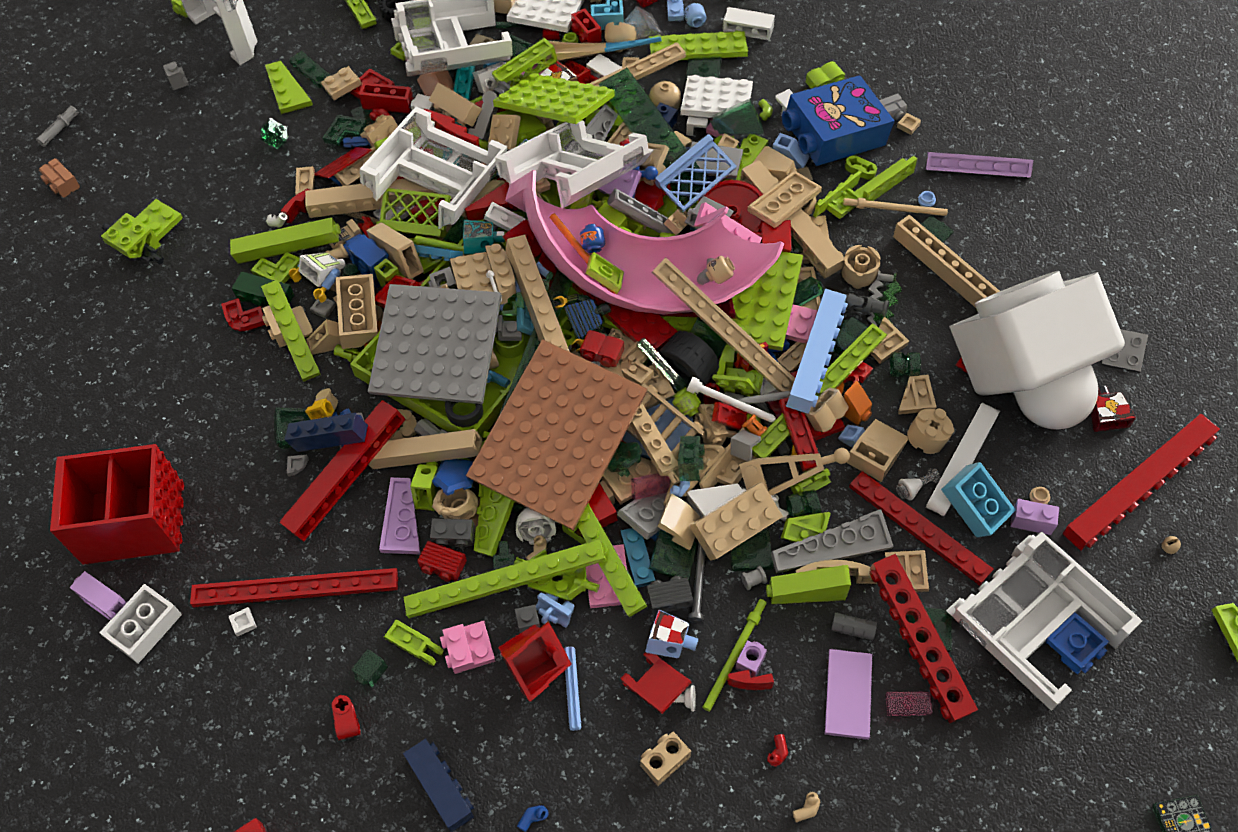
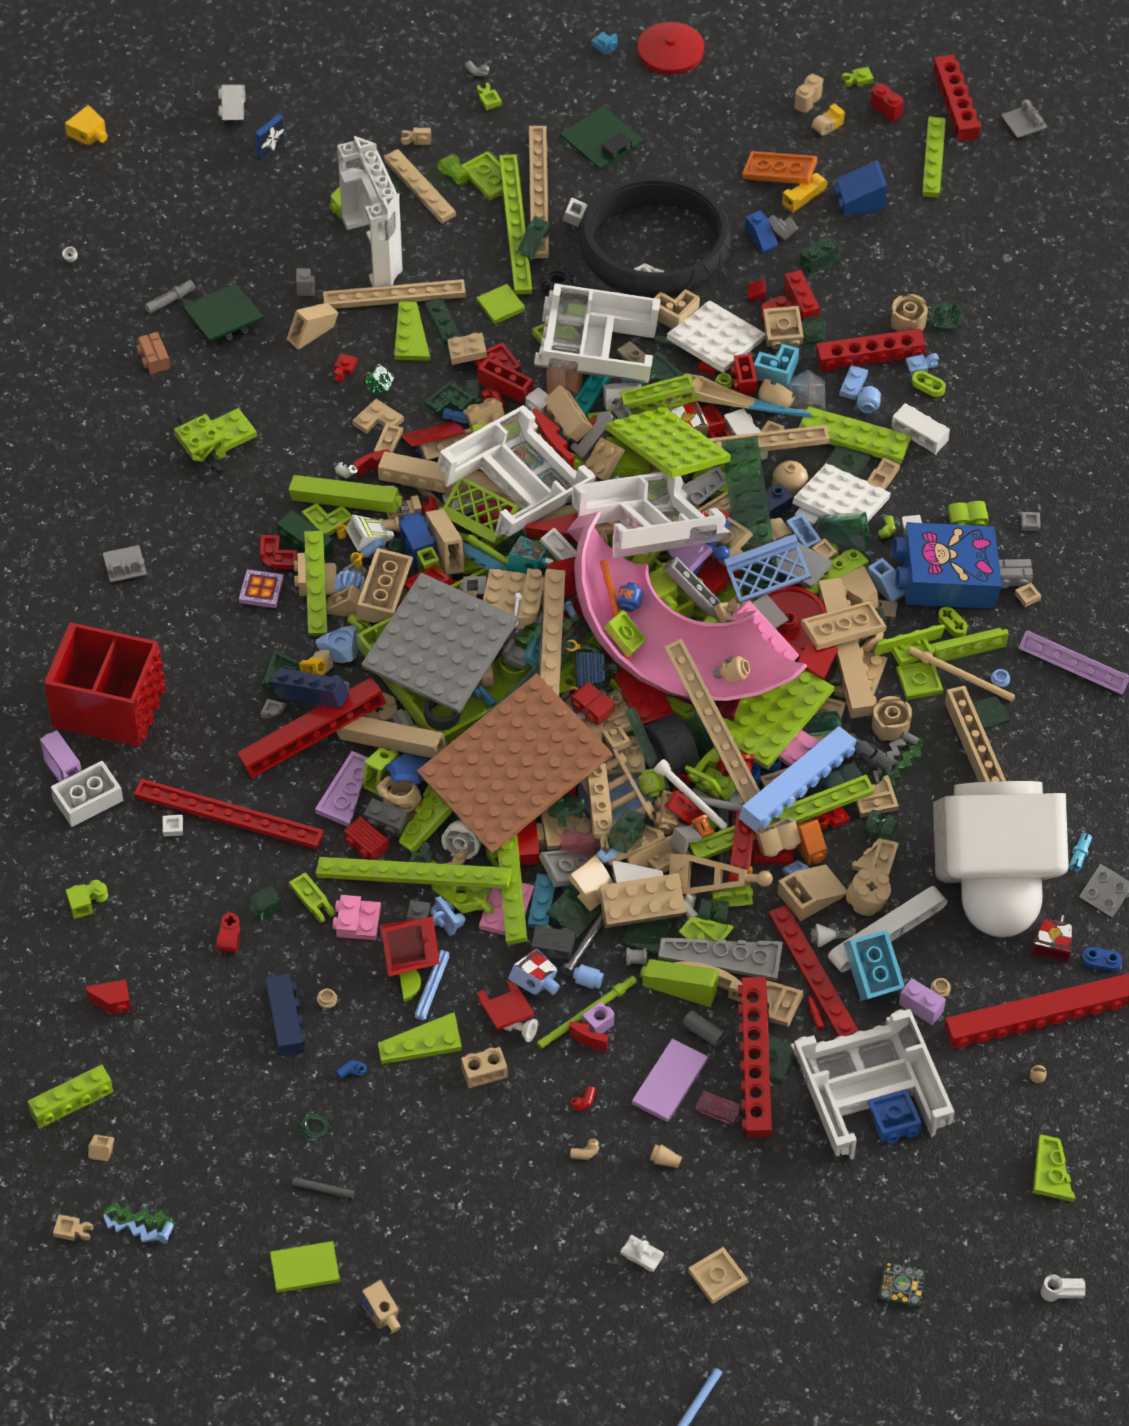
camera: 20 degrees right, 5 degrees down
(99, 376) = (124, 563): none -> light grey hinge
(112, 124) = (224, 313): none -> dark green piece
(174, 739) = (81, 896): none -> lime brick
(194, 107) = (311, 323): none -> tan slope
(239, 132) = (344, 365): none -> red plate
(240, 353) = (261, 588): none -> tile
(257, 61) = (395, 293): none -> tan plate
(283, 164) = (377, 413): none -> tan plate
(319, 315) = (348, 578): none -> light blue gear
(337, 377) = (340, 643): none -> light blue hat
(354, 40) = (500, 304): none -> lime tile
(474, 747) = (327, 998): none -> tan plate
(551, 698) = (410, 984): none -> lime tile
(592, 752) = (427, 1040): none -> lime wing
(697, 131) = (803, 530): none -> light blue slope
(719, 617) = (588, 976): none -> light blue brick
(738, 67) = (883, 474): none -> tan slope
(861, 225) = (919, 680): none -> lime tile
(875, 66) = (1030, 521): none -> light grey tile
(887, 781) = (664, 1156): none -> tan cone
(943, 567) = (815, 1013): none -> red piece
(1158, 412) = (1102, 959): none -> blue plate

